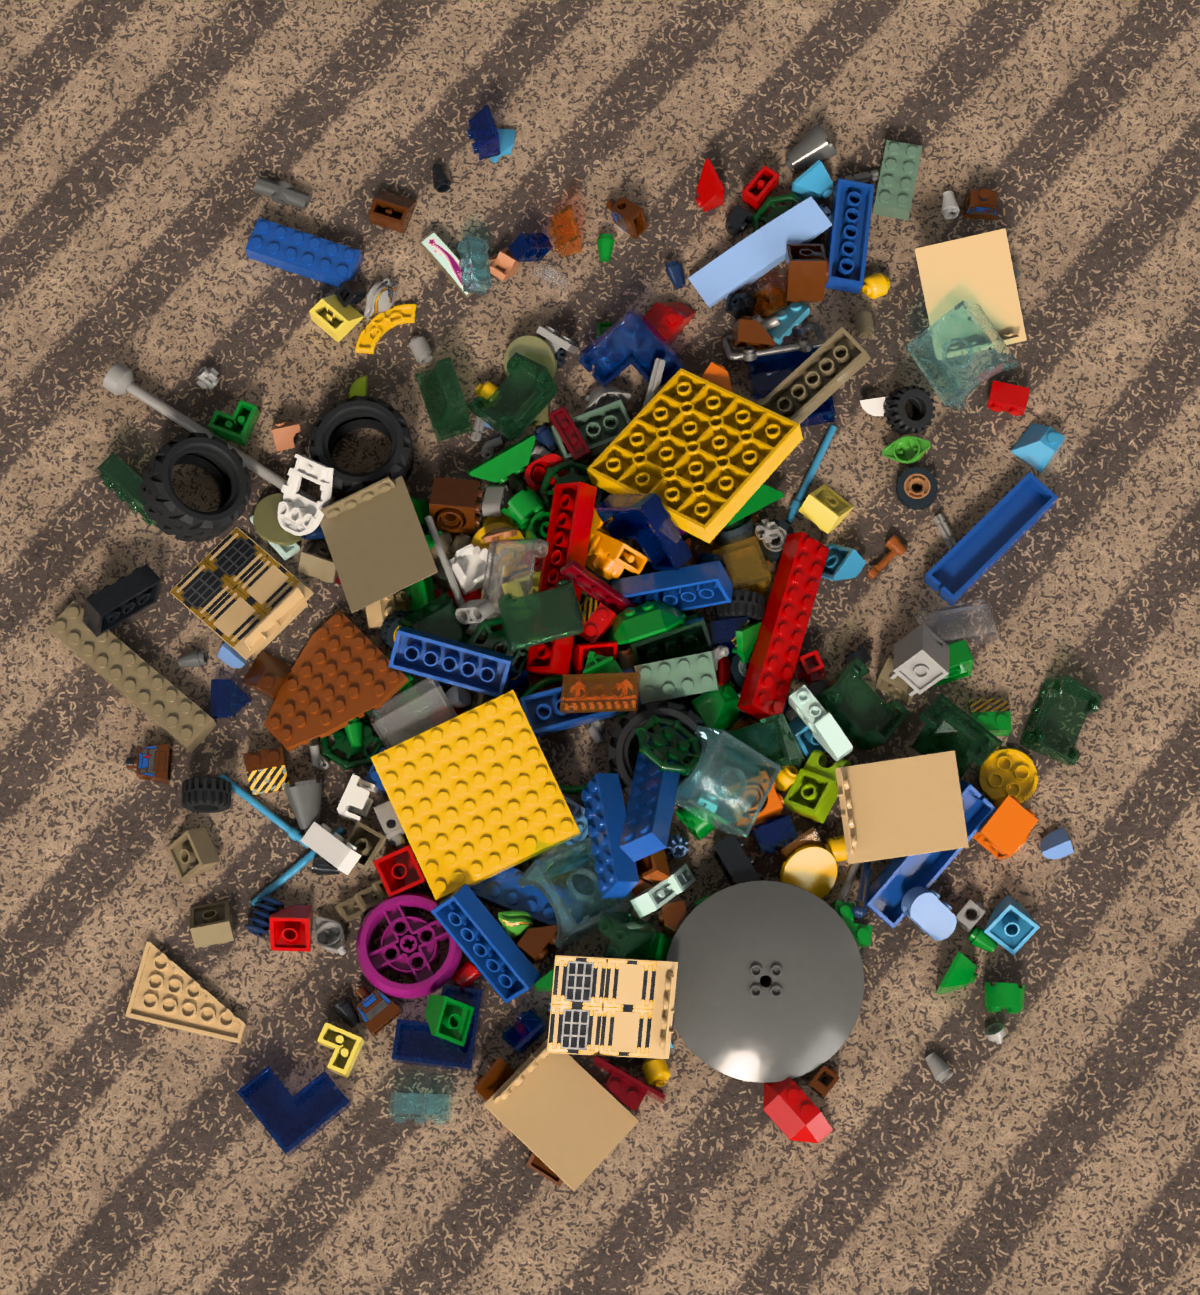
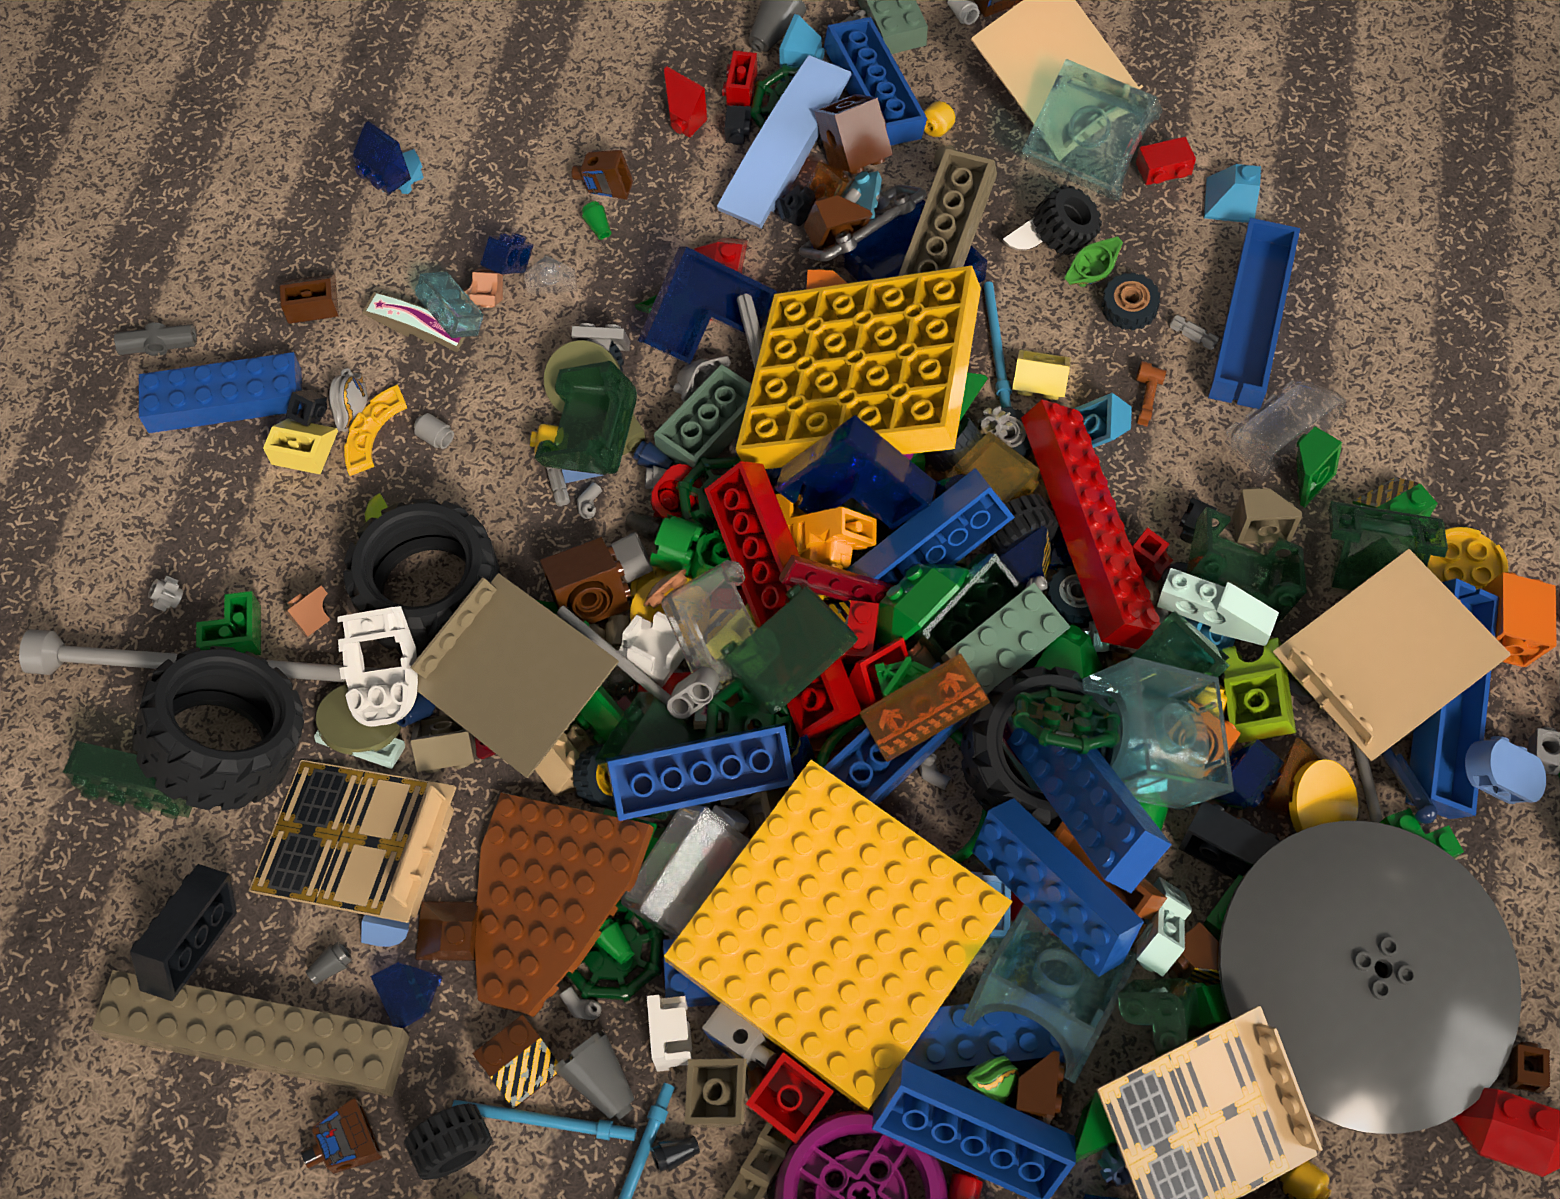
camera: 30 degrees left, 10 degrees down
(331, 847) = (673, 1117): white brick -> none
(440, 179) = (351, 238): black cone -> none
(444, 400) = (498, 470): clear green windscreen -> none
(504, 463) = (620, 503): green wedge -> none
(566, 233) = (541, 221): clear orange slope -> none
(569, 434) = (682, 430): dark red tile -> none
(675, 273) = (697, 209): dark blue cone -> none
(746, 640) = (1059, 553): green slope -> none
(837, 848) = (1336, 748): yellow head -> none
(920, 659) = (1288, 469): light grey container -> none
(1059, 718) = (1470, 467): clear green windscreen -> none

